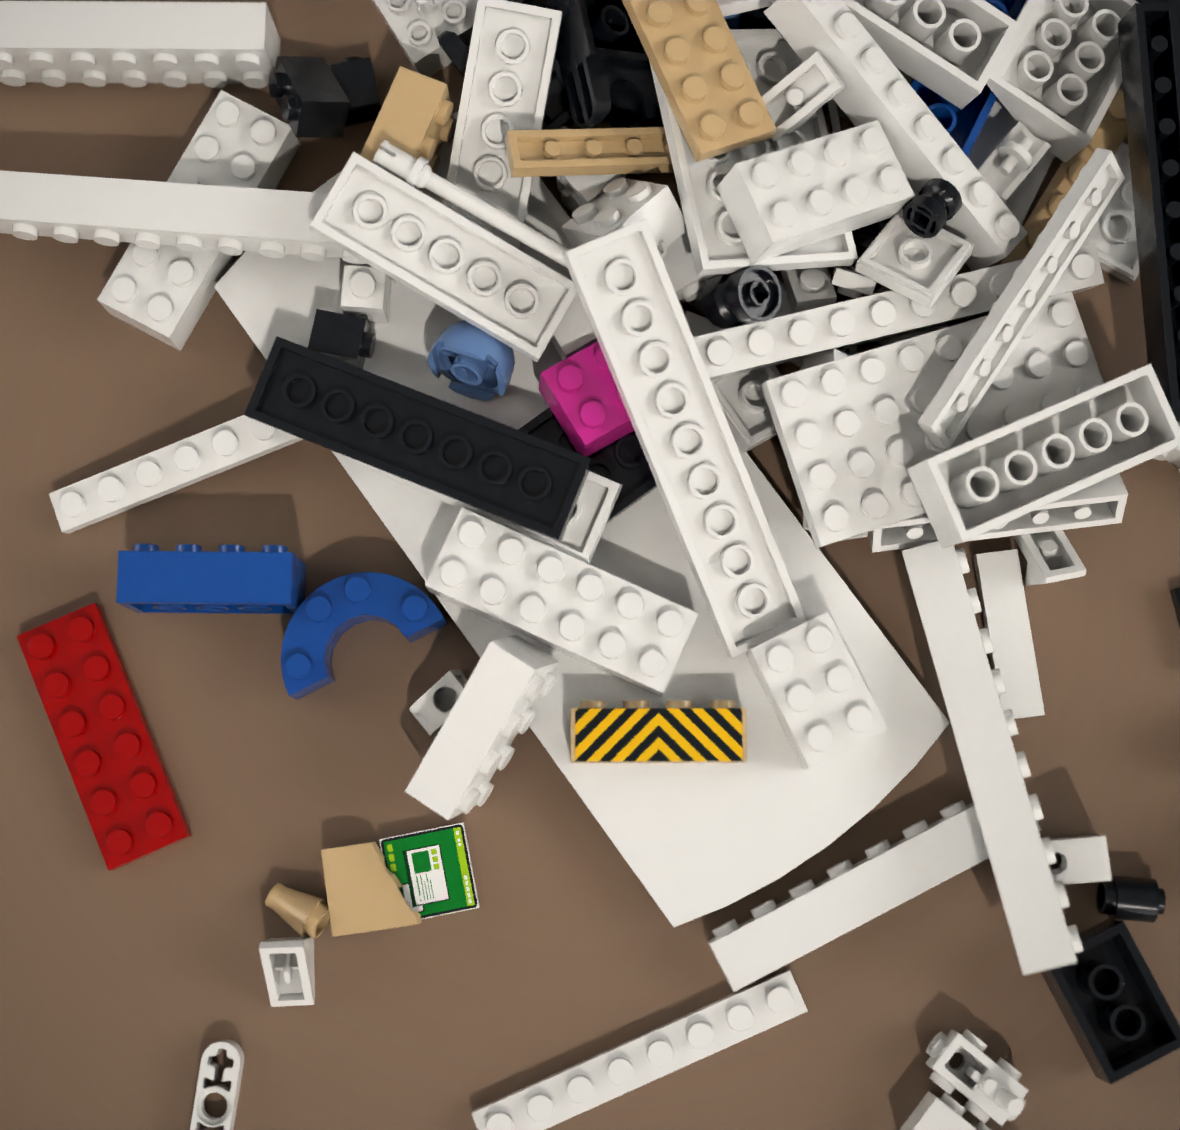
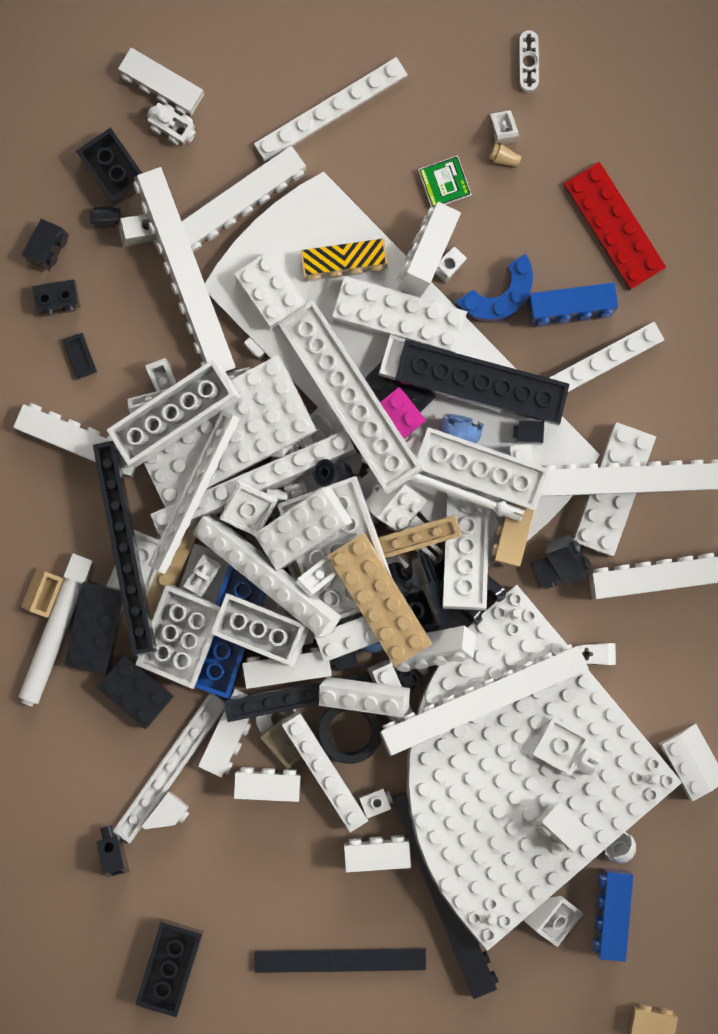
camera: 170 degrees right, 5 degrees up
(363, 891) = (475, 168): tan slope -> none
(859, 586) = (254, 348): none -> white tile
(932, 208) = (243, 532): black wheel -> none
(1010, 631) = (176, 336): white tile -> none

